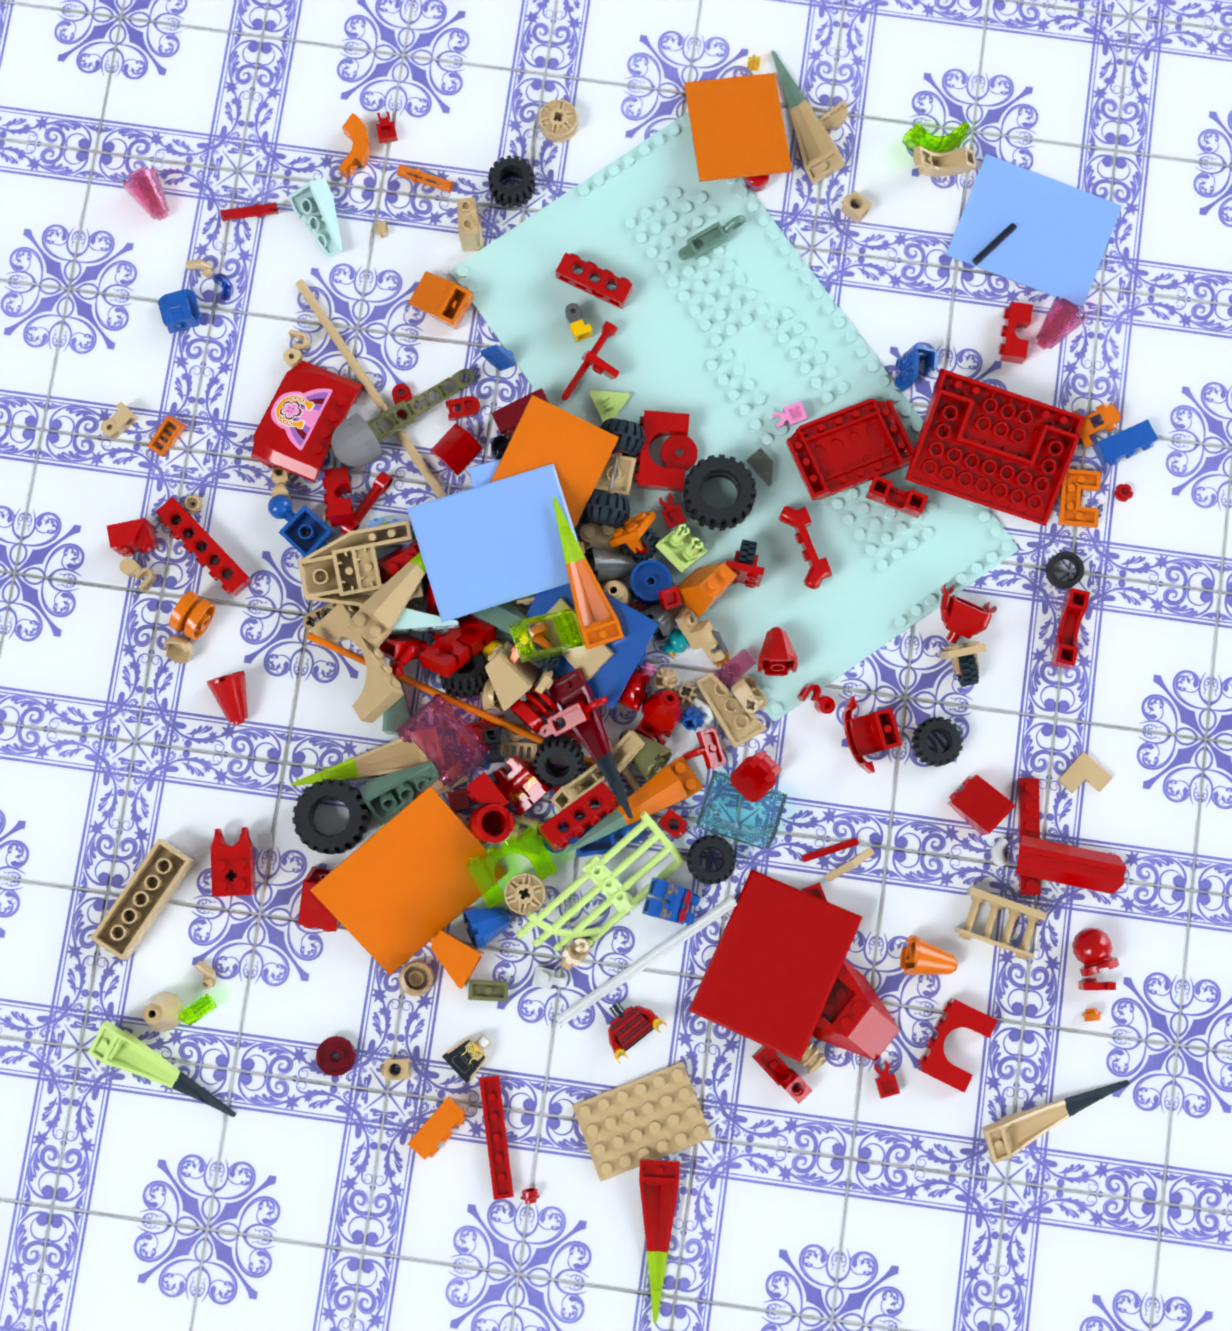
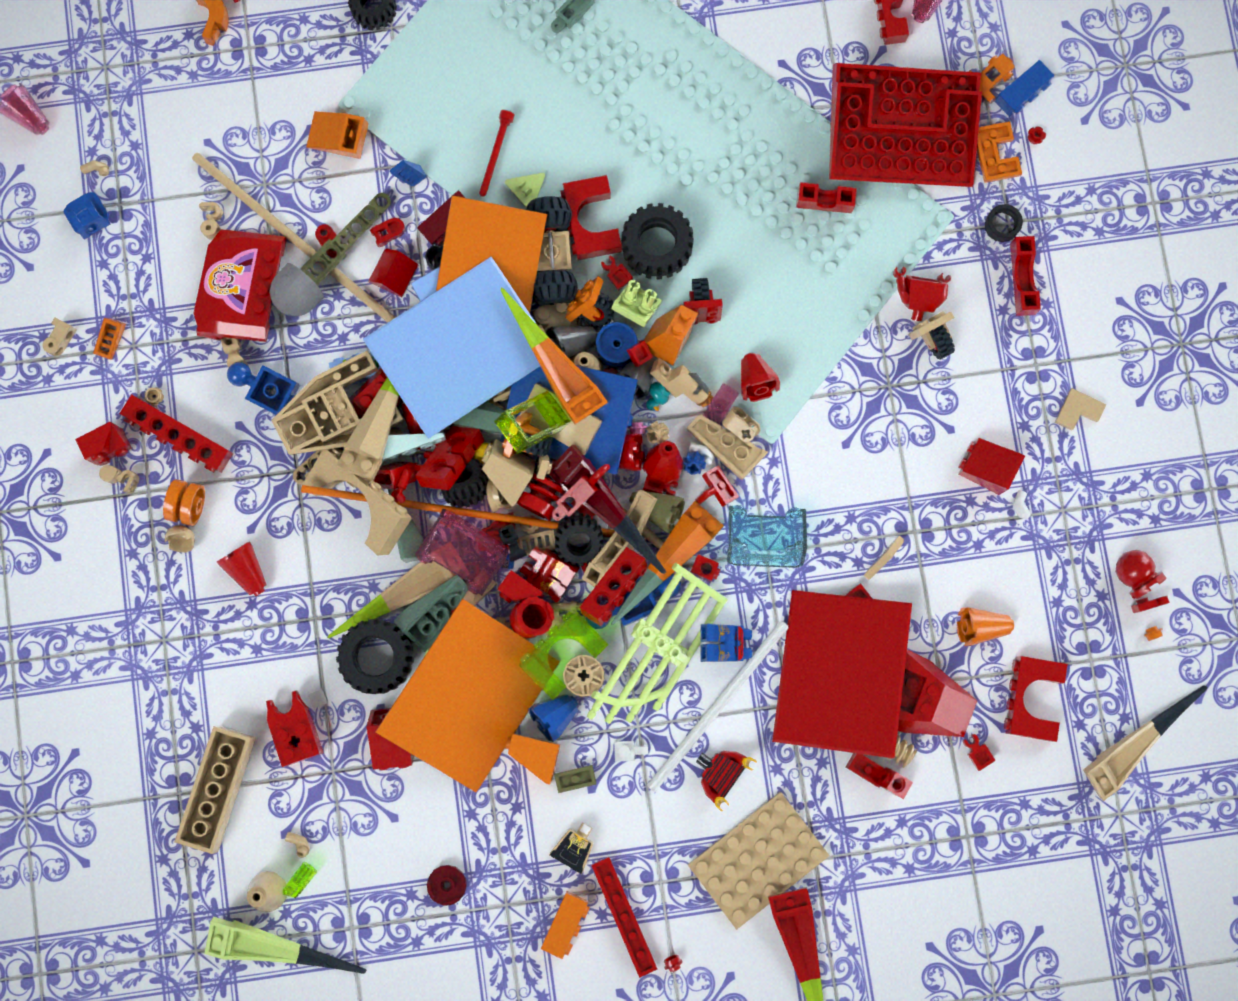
camera: 15 degrees left, 0 degrees up
(226, 285) = (125, 178): clear blue arm -> none
(249, 211) = (135, 98): red pin -> none
(317, 209) = (191, 80): light aqua wedge -> none
(337, 483) = (288, 338): red arch -> none
(380, 486) = (330, 327): red piece -> none
(381, 228) = (260, 83): tan plate -> none
(404, 172) = (265, 23): orange pin -> none
(404, 1064) = (515, 873): tan brick -> none
(416, 978) = (502, 787): tan piece -> none
(458, 800) = (493, 605): red plate -> none
(469, 225) = (343, 55): tan window -> none
(575, 953) = (648, 718): tan hips -> none
(578, 328) = (473, 120): leg -> none
(599, 365) = (508, 153): red plate -> none
(616, 297) = (485, 82): red brick -> none
(682, 443) = (602, 206): red plate -> none
(687, 687) = (680, 434): tan gear -> none
(719, 844) = (761, 578): black tyre -> none
(755, 776) = (770, 500): red piece -> none
(762, 465) = (689, 205): clear smoke tile -> none
(792, 414) = (703, 148): bright pink plate -> none
(819, 568) = (772, 286): red plate -> none
(822, 704) = (813, 413): red leg -> none
(830, 849) = (861, 549): red bar -> none
(850, 447) = (768, 164): red slope -> none
(869, 733) = (866, 428): red piece -> none
(909, 364) = (801, 71): blue piece -> none
(948, 730) = (938, 404): black tyre -> none
(1015, 909) = (1052, 556): tan fence -> none
(1028, 825) = (1044, 482): red plate -> none
(1070, 865) = (1092, 498): red piece -> none

